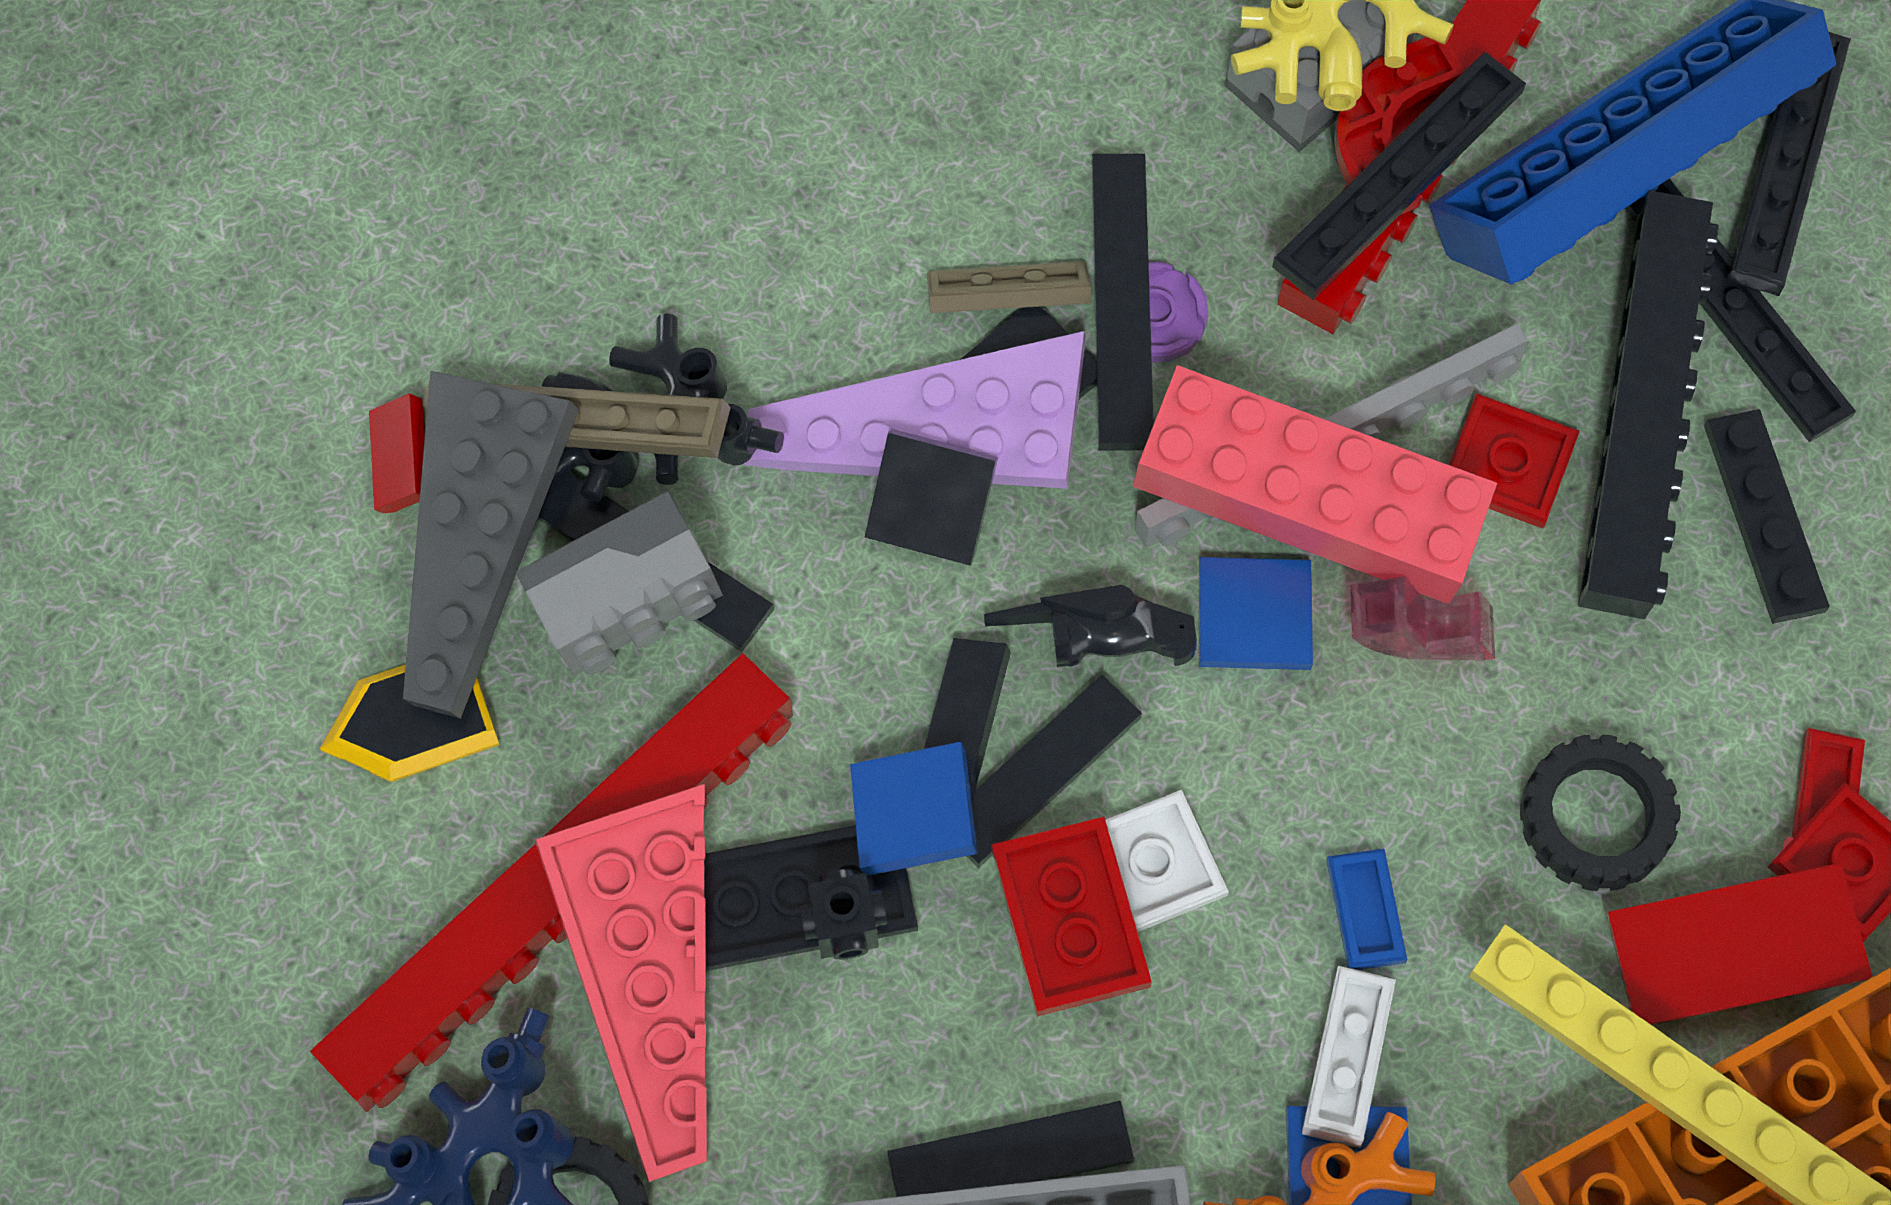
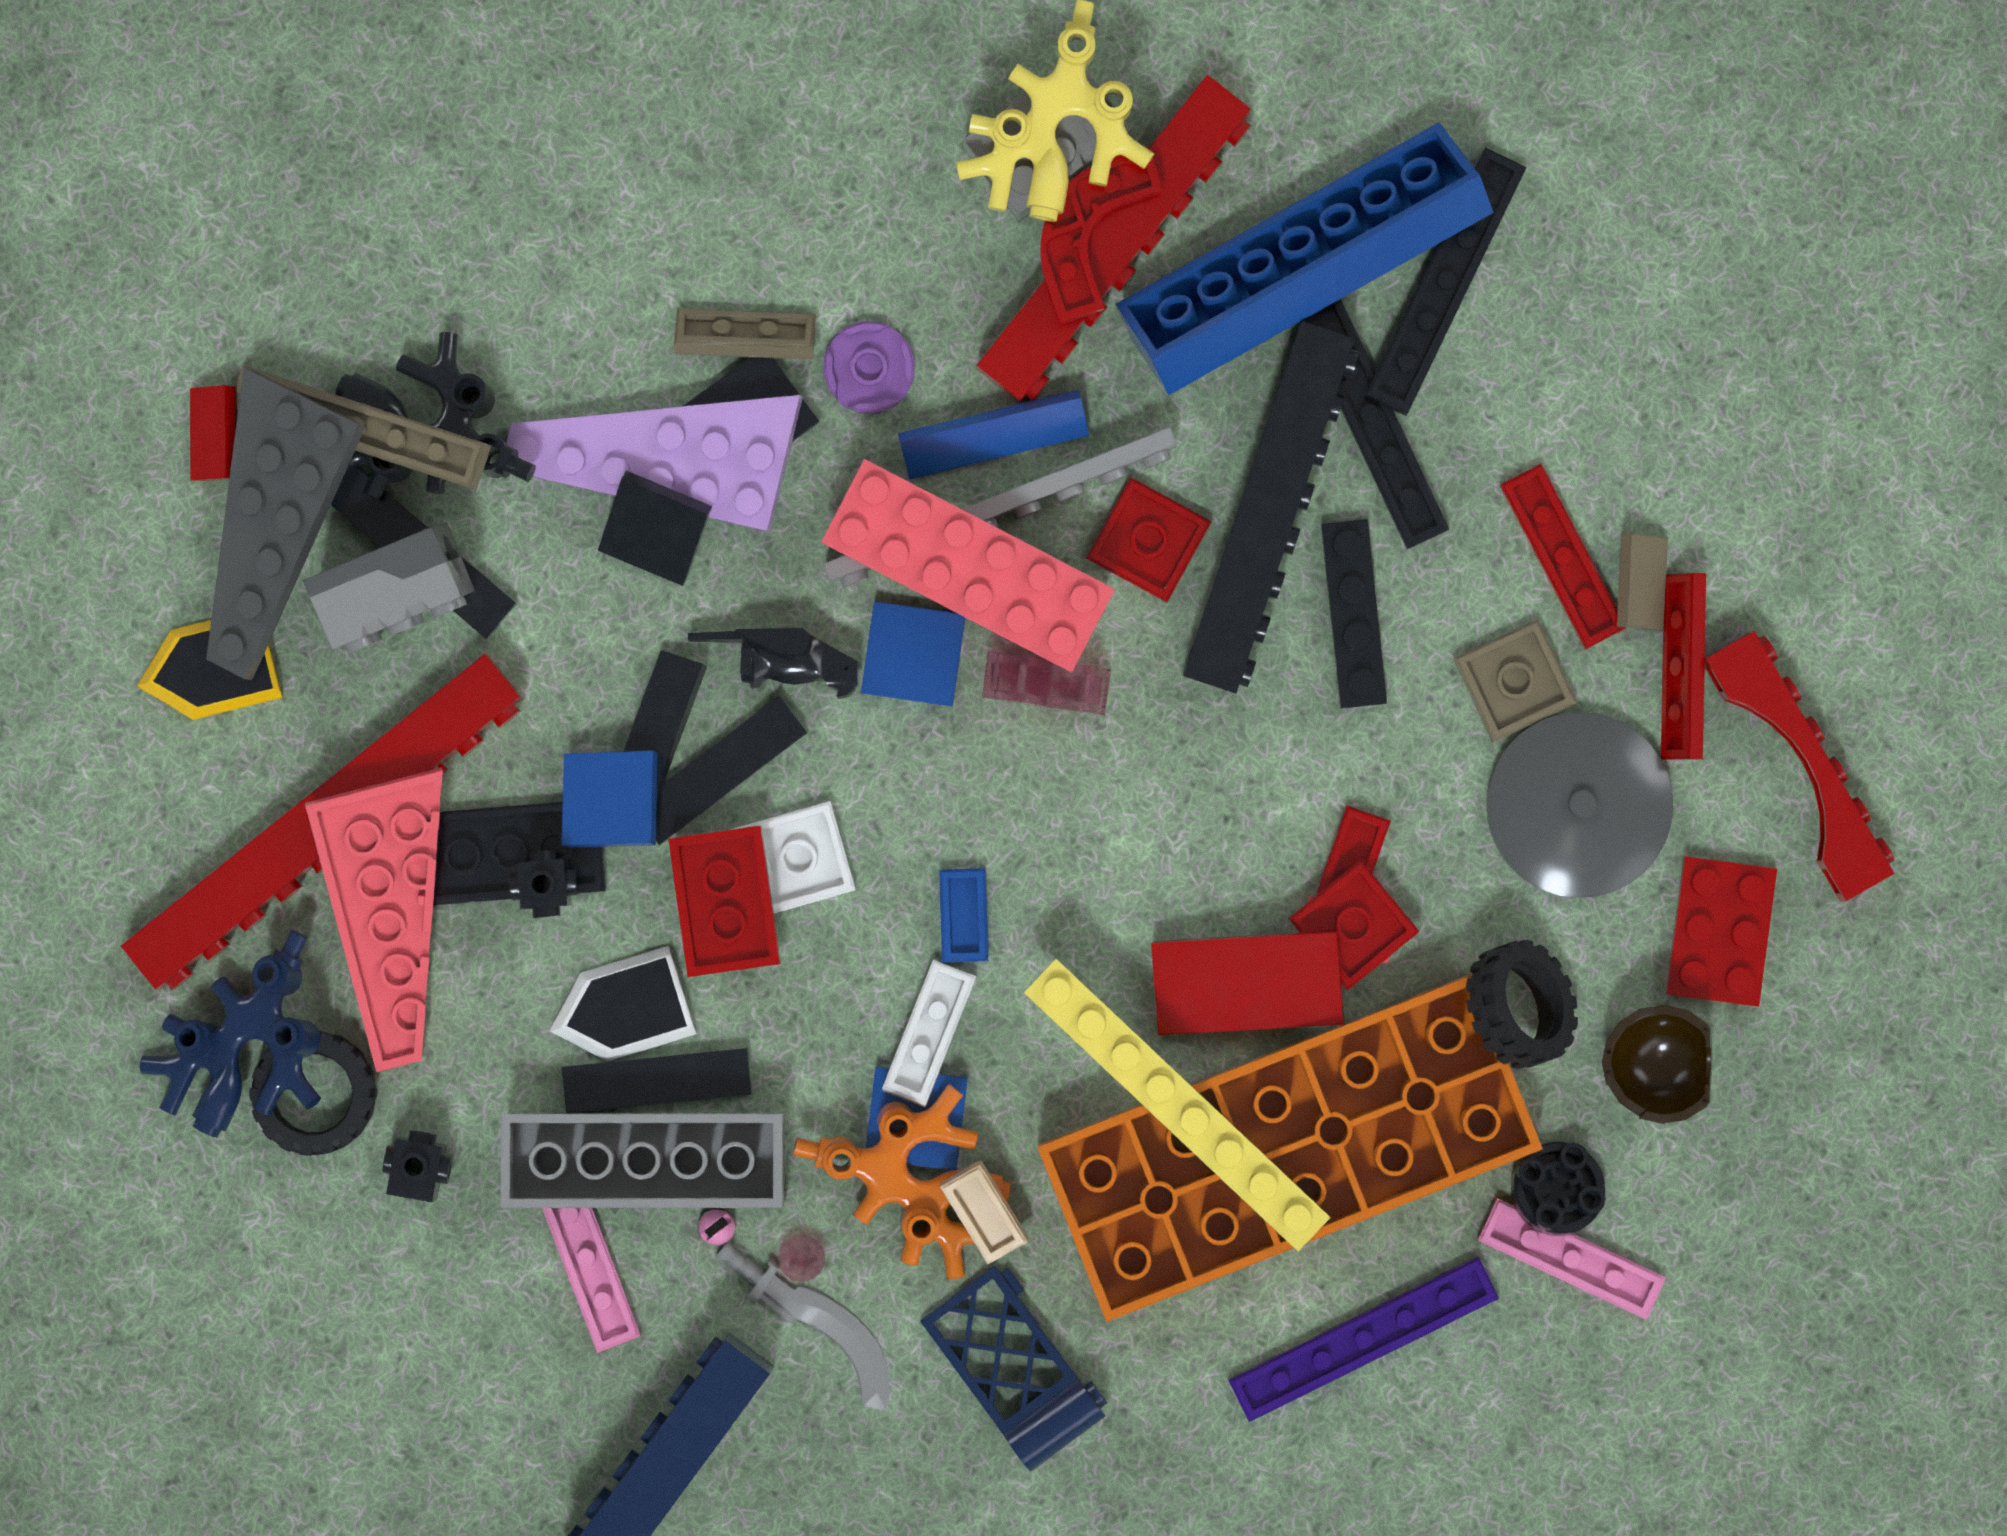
camera: 10 degrees right, 20 degrees up
(960, 1069) = (626, 1007): none -> black tile
(1122, 302) = (839, 359): black tile -> none
(1323, 356) = (993, 434): none -> blue tile
(1398, 175) = (1086, 287): black tile -> none
(1633, 767) = (1211, 861): black tyre -> none

